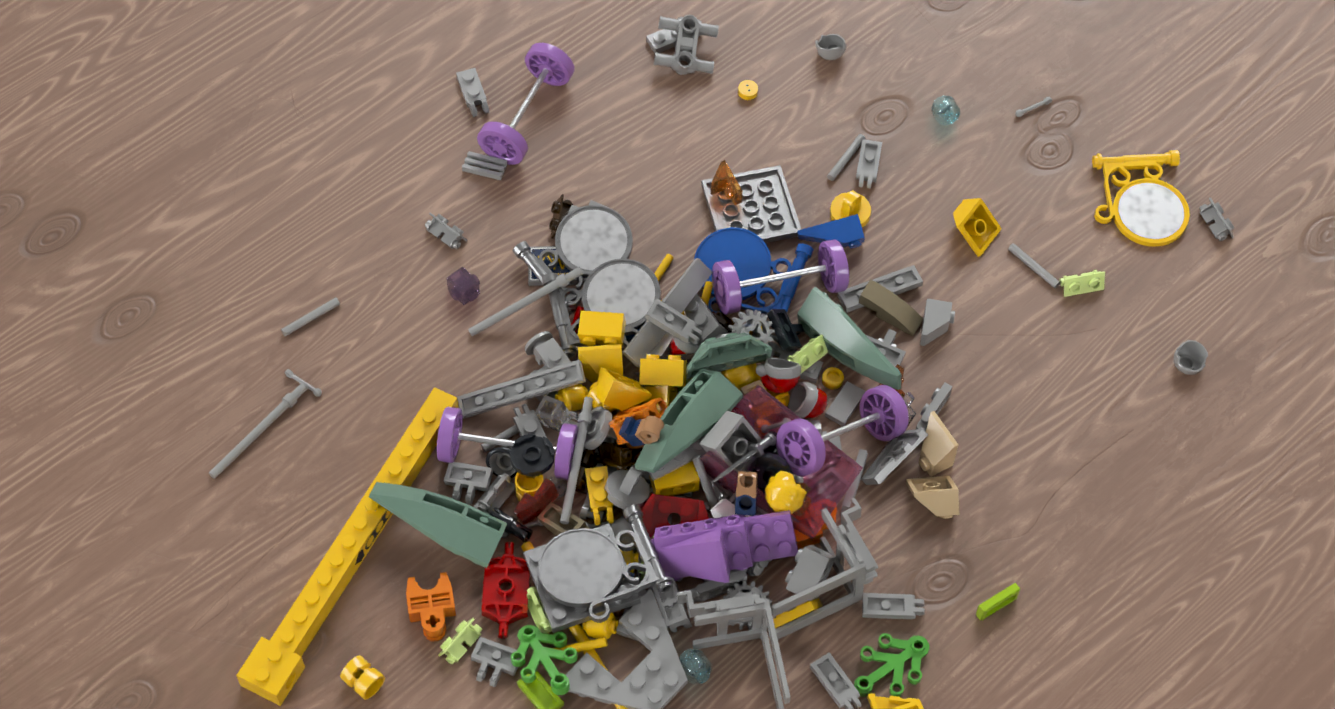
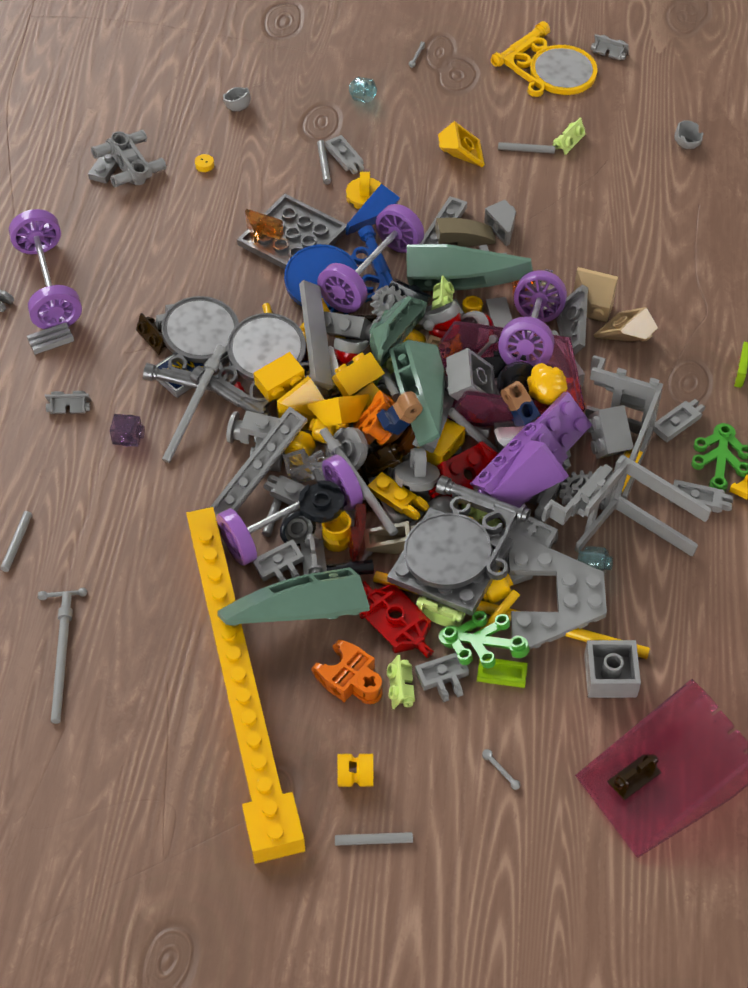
camera: 40 degrees left, 5 degrees down
(673, 322) = (331, 334): light grey hinge -> none
(755, 450) = (493, 372): flat silver sword -> none
(939, 399) = (563, 271): light grey hinge -> none

